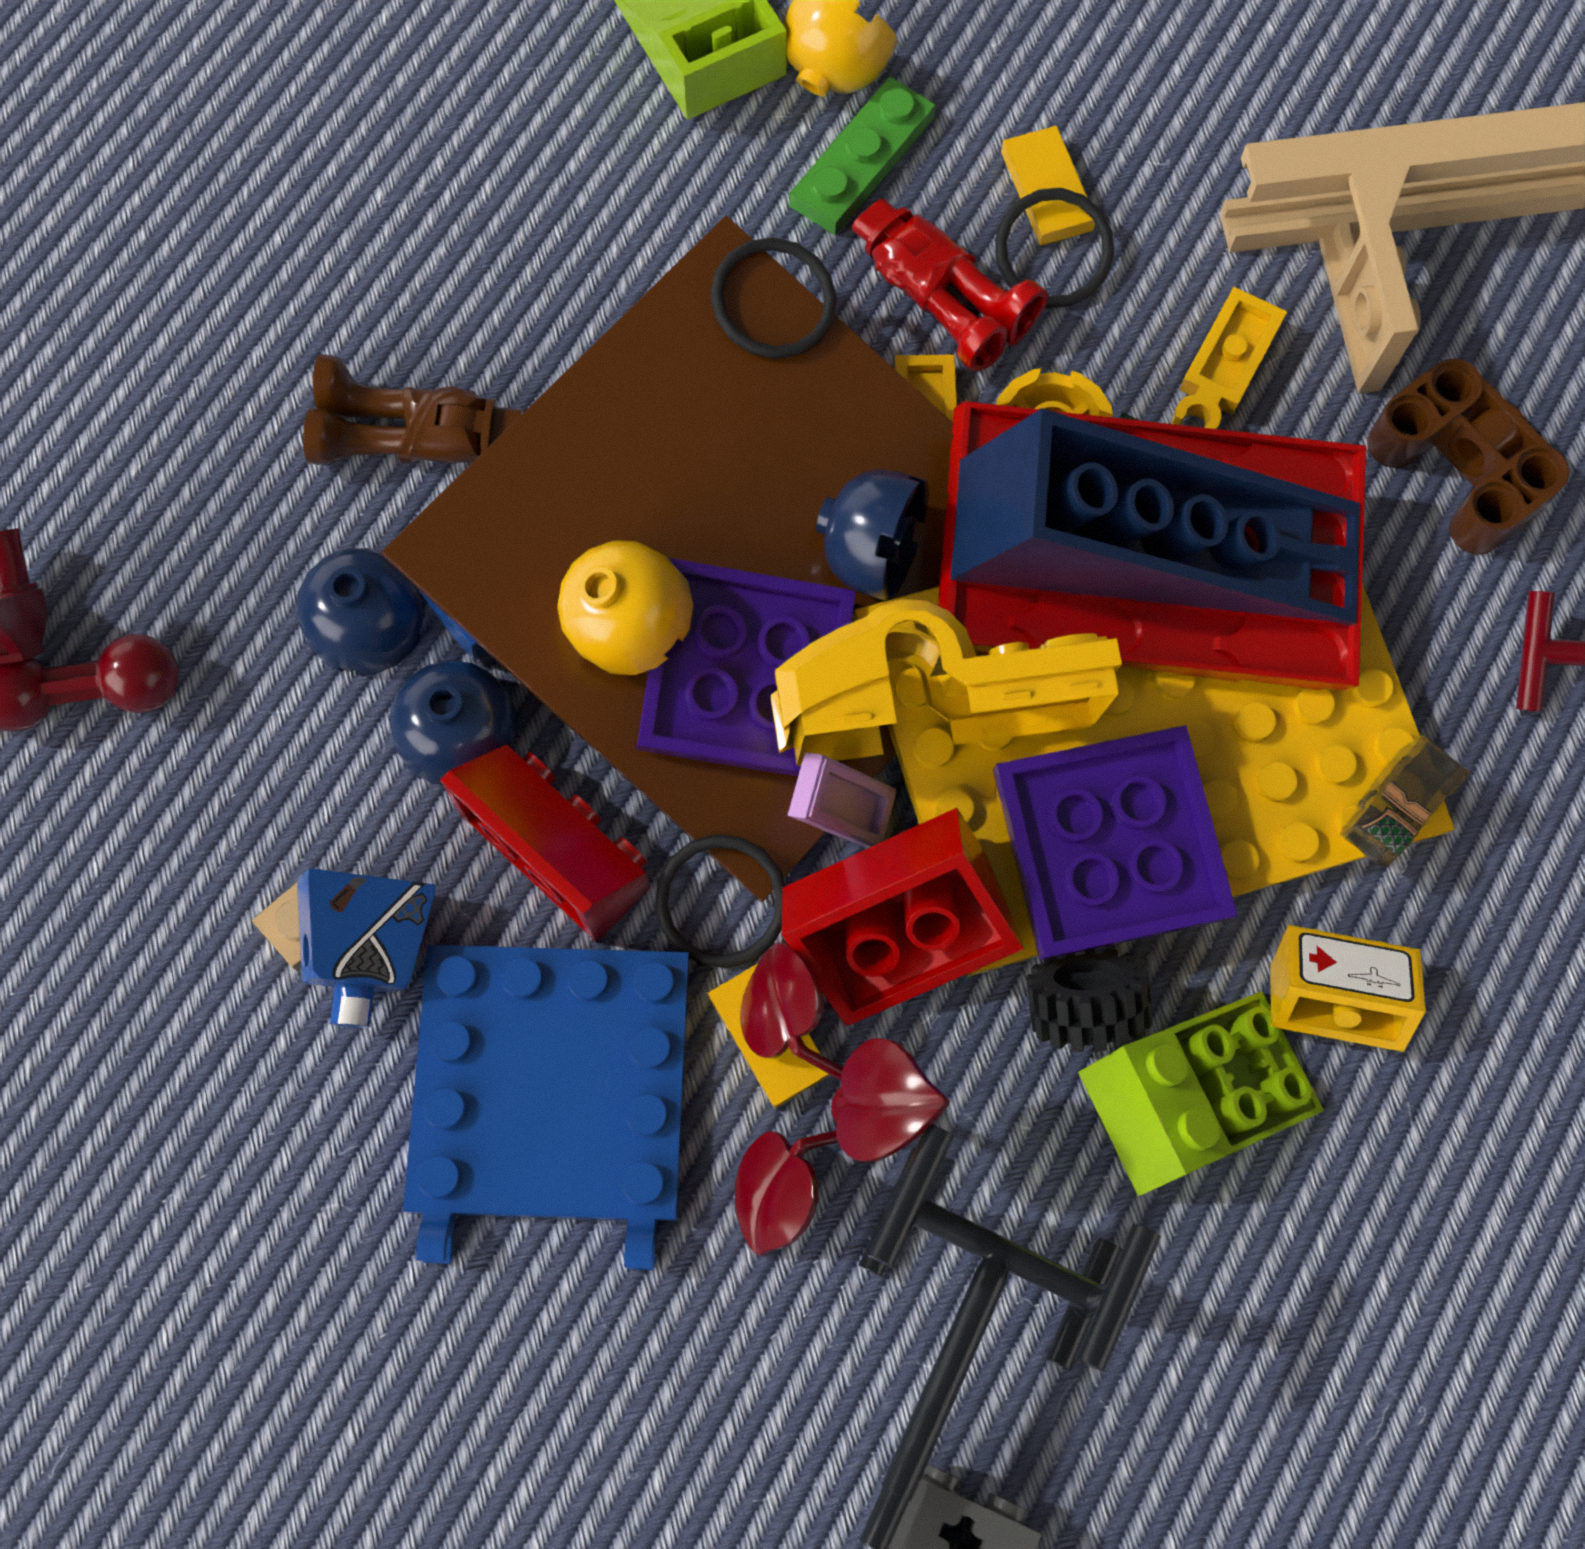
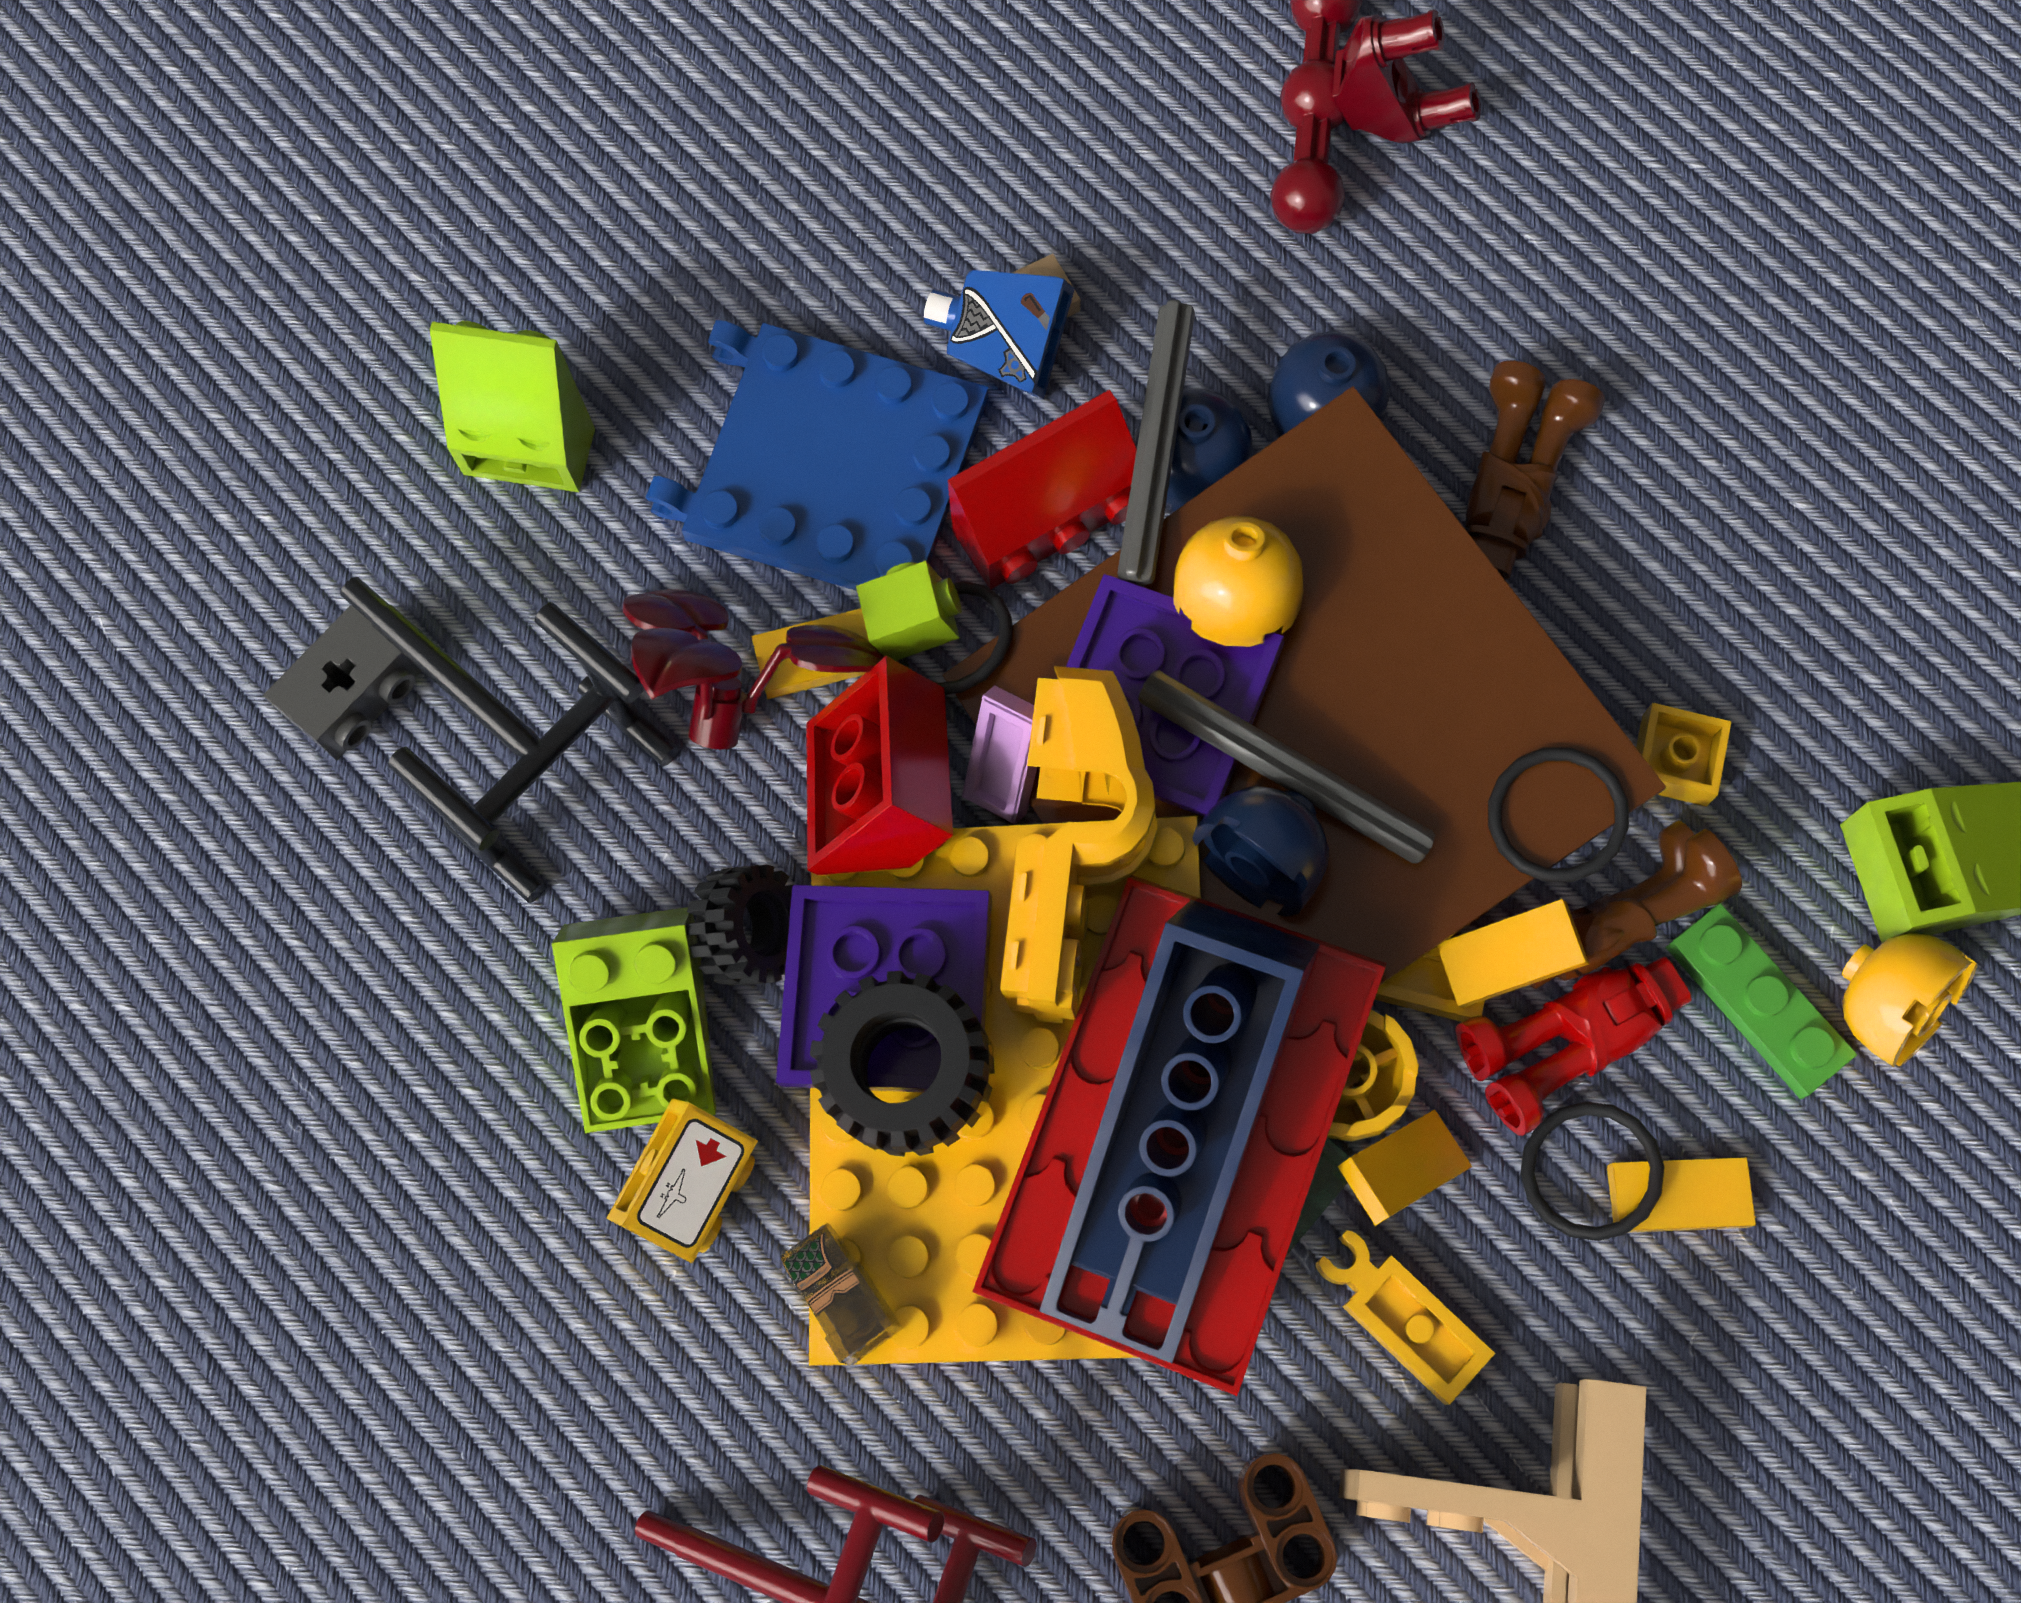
camera: 110 degrees right, 0 degrees up
(474, 733) = (1156, 444): none -> dark grey axle
(596, 1449) = (510, 406): none -> lime slope
(655, 241) = (1684, 751): none -> yellow piece
(712, 938) = (909, 610): none -> lime brick
(794, 533) = (1286, 767): none -> dark grey axle
(863, 283) = (1693, 876): none -> reddish brown piece
(898, 323) = (1512, 953): none -> yellow tile
(1126, 380) = (1404, 1166): none -> yellow tile
(1241, 748) = (858, 1029): none -> black tyre

